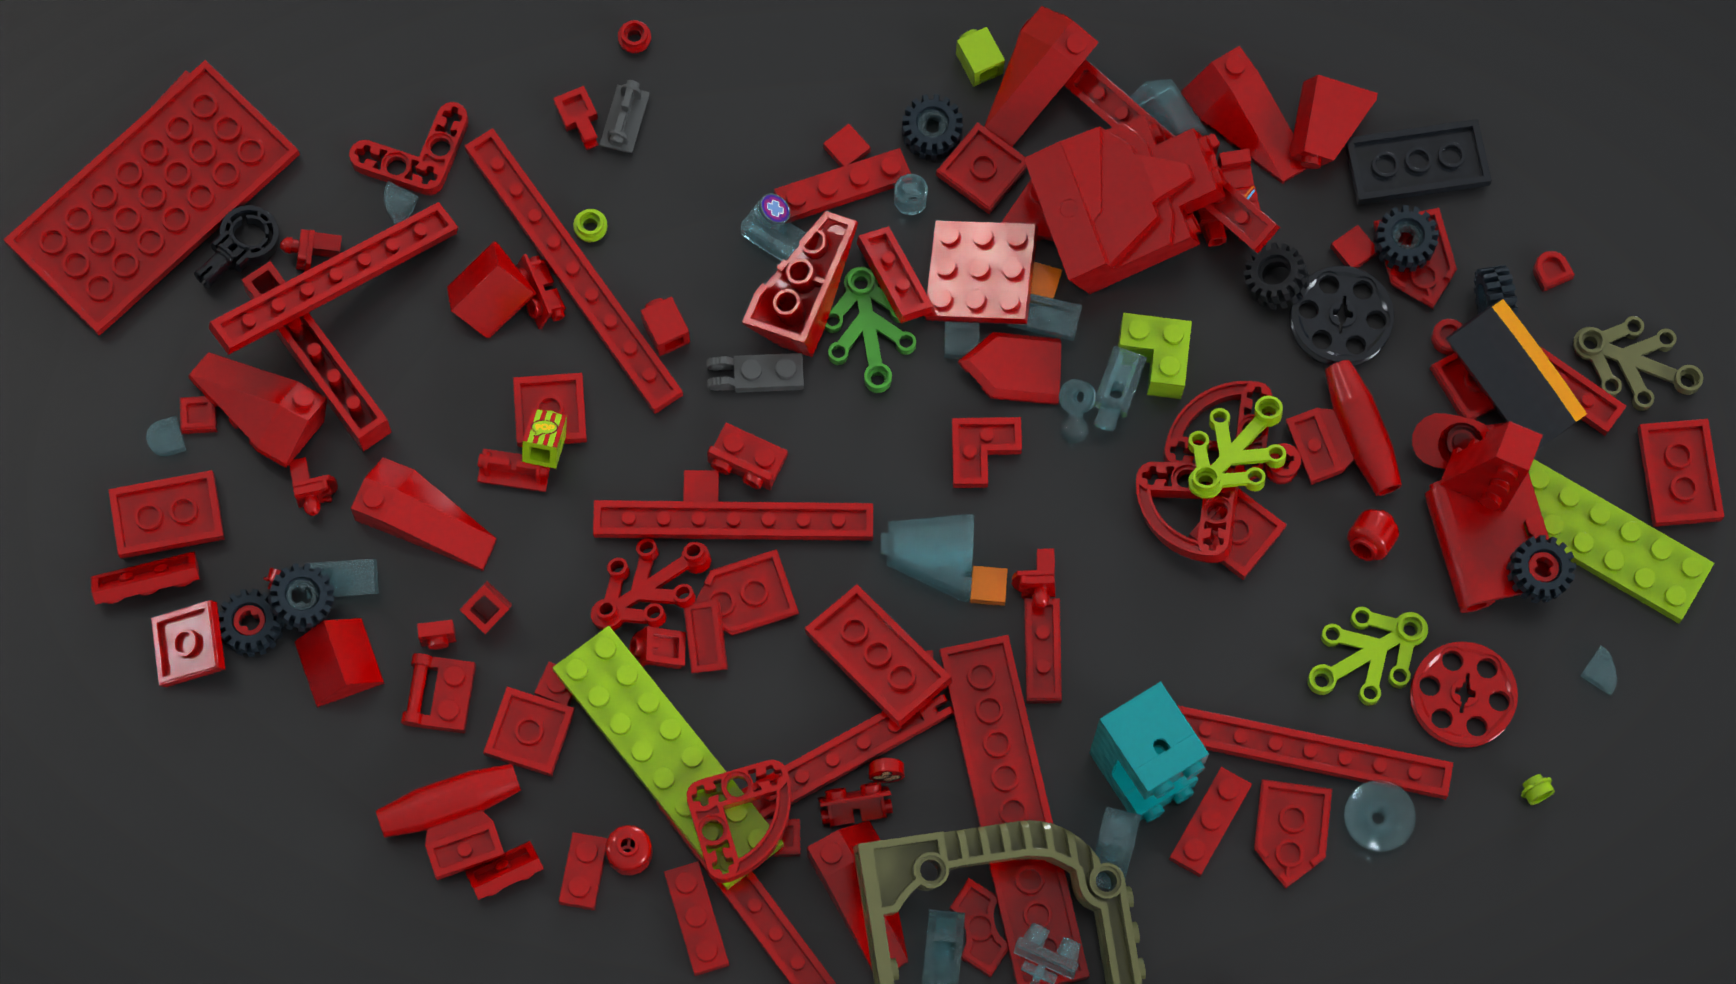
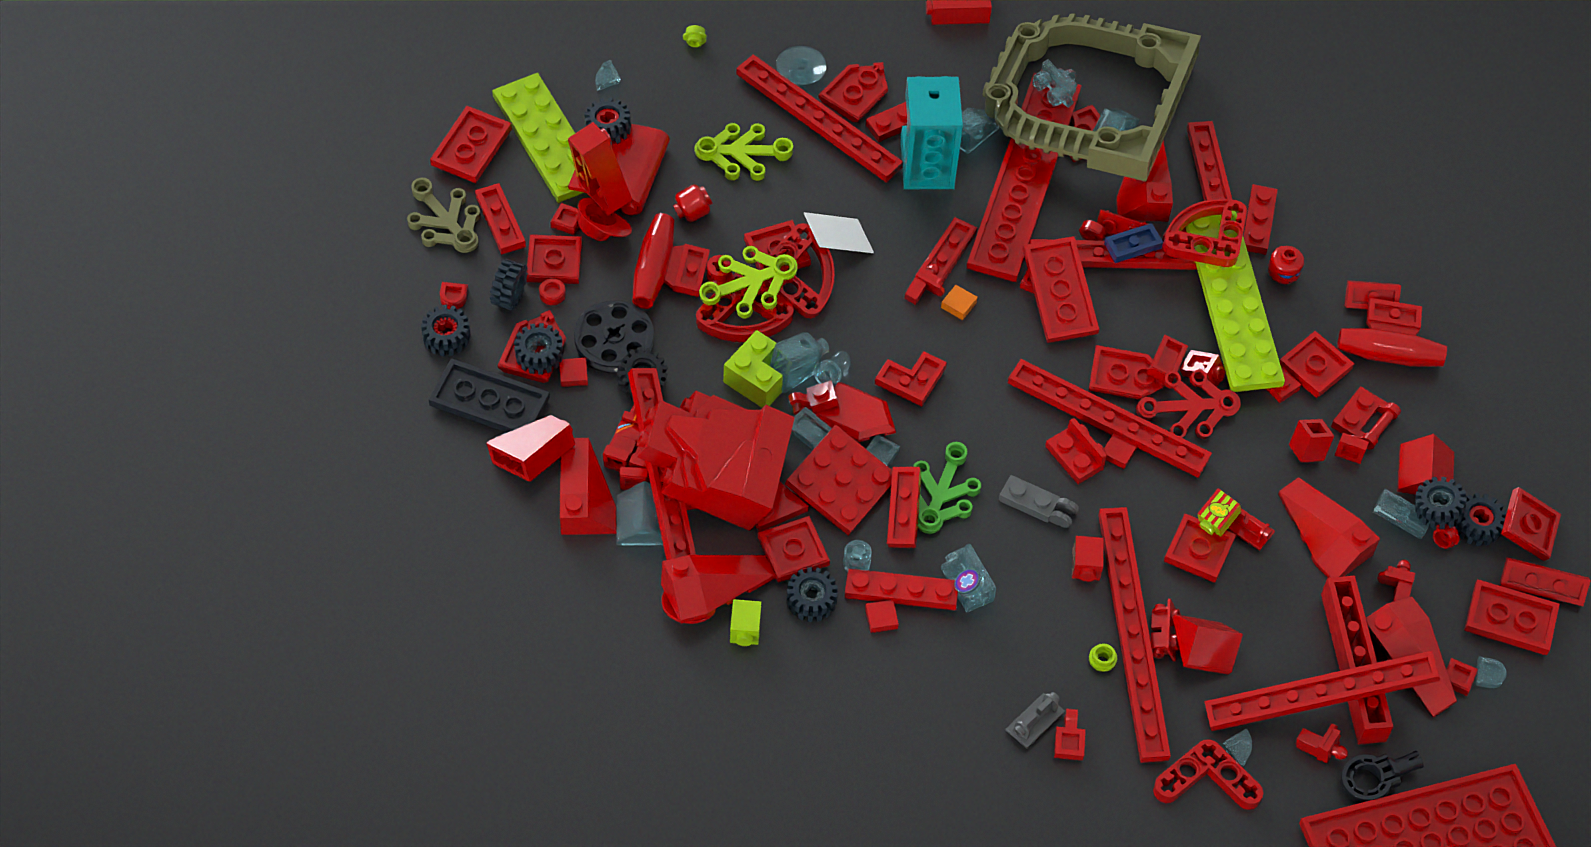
camera: 150 degrees left, 15 degrees down
(583, 871) = (1319, 276): red plate -> none
(630, 28) = (997, 769): red plate -> none
(801, 292) = (978, 520): red wedge -> none
(825, 764) = (1133, 243): none -> dark blue plate
(933, 552) = (985, 329): clear light blue slope -> none
(1045, 280) = (797, 455): orange tile -> none
(1067, 358) = (817, 398): none -> red plate
(1179, 584) = (838, 232): none -> white sticker
(1449, 702) = (699, 93): red wedge -> none
(1515, 372) = (535, 230): black slope -> none
(1536, 204) = (439, 322): none -> black bush

